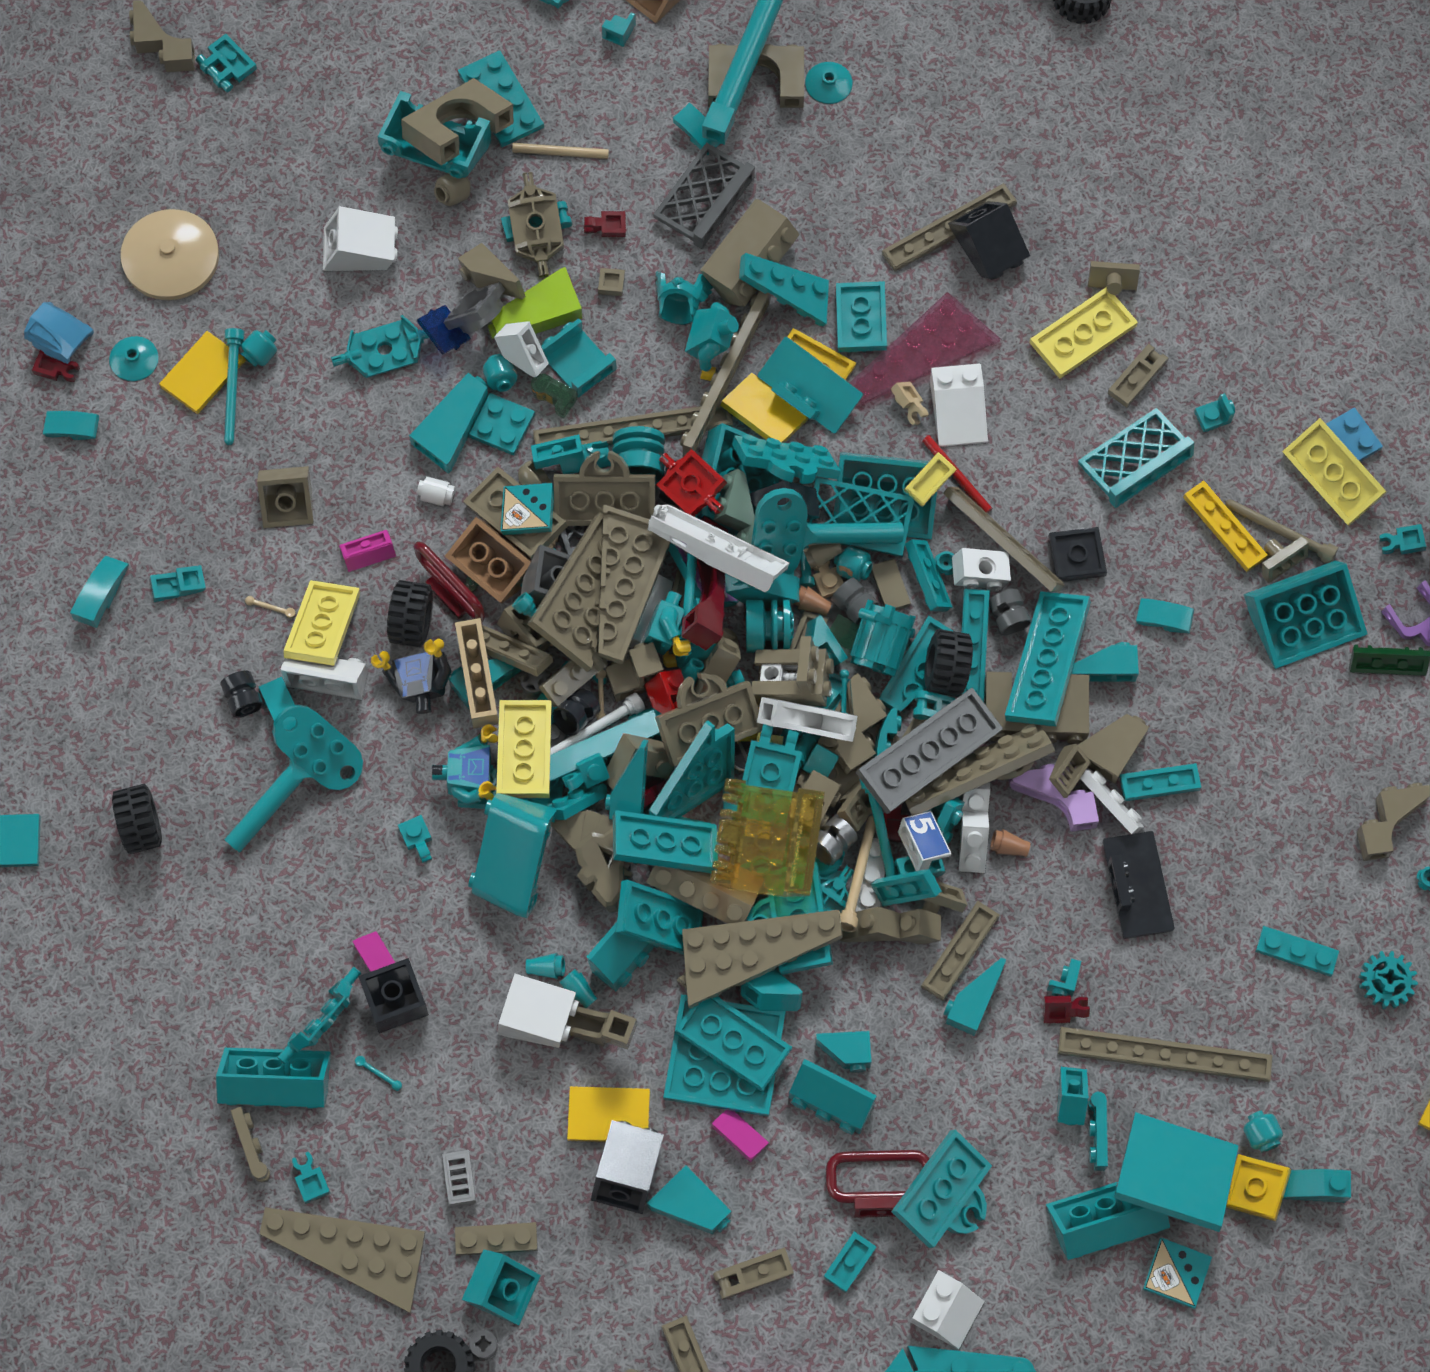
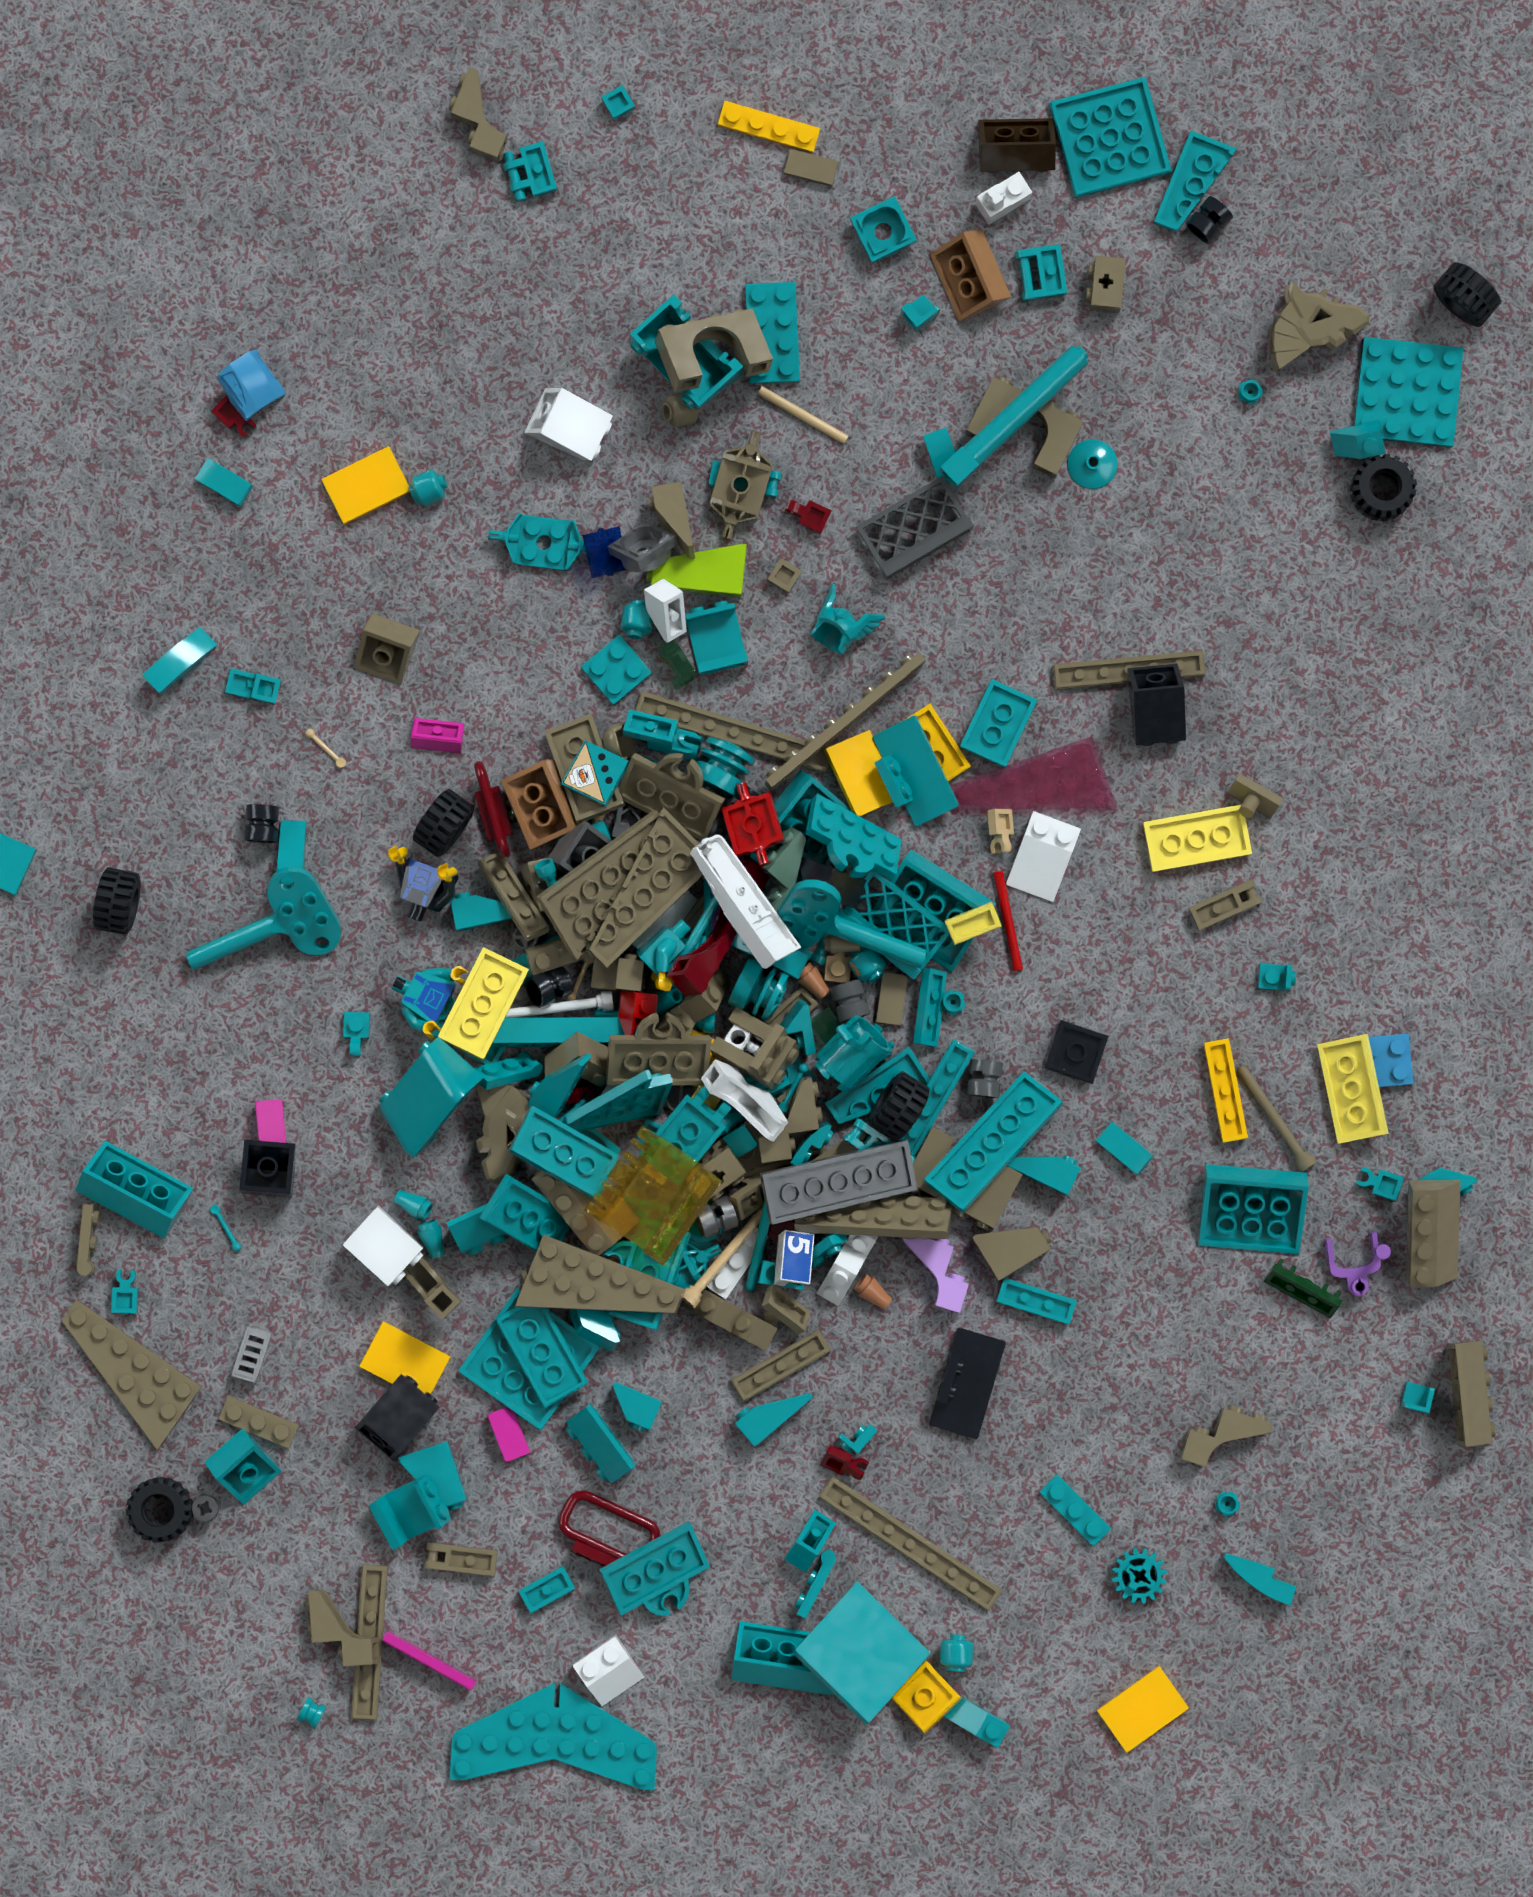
camera: 25 degrees right, 15 degrees up
(137, 367) = (313, 452): teal dish -> none
(169, 254) = (389, 349): tan dish -> none
(234, 339) = (407, 471): teal piece -> none
(321, 623) = (361, 792): light yellow plate -> none
(330, 1011) = (199, 1162): teal plate -> none
(343, 679) = (344, 839): white slope -> none
(436, 491) = (524, 709): white brick -> none
(450, 422) = (569, 648): teal slope -> none
(476, 673) = (474, 912): tan brick -> none
(589, 772) = (531, 1050): teal plate -> none
(683, 1248) = (409, 1511): none -> teal panel
(710, 336) = (846, 681): teal torso -> none
(759, 233) = (924, 613): dark tan slope -> none
(788, 285) = (944, 665): teal wing -> none
(906, 887) = (755, 1294): teal plate -> none
(992, 563) = (993, 1027): white brick -> none
(1004, 539) = (1015, 1006): dark tan tile -> none
(1079, 762) = (966, 1256): dark tan slope -> none
(1112, 800) = (983, 1298): white plate -> none
(1151, 470) = (1187, 1004): teal fence -> none
(1177, 1273) = (820, 1734): tile -> none
(1283, 558) = (1261, 1146): dark tan tile -> none

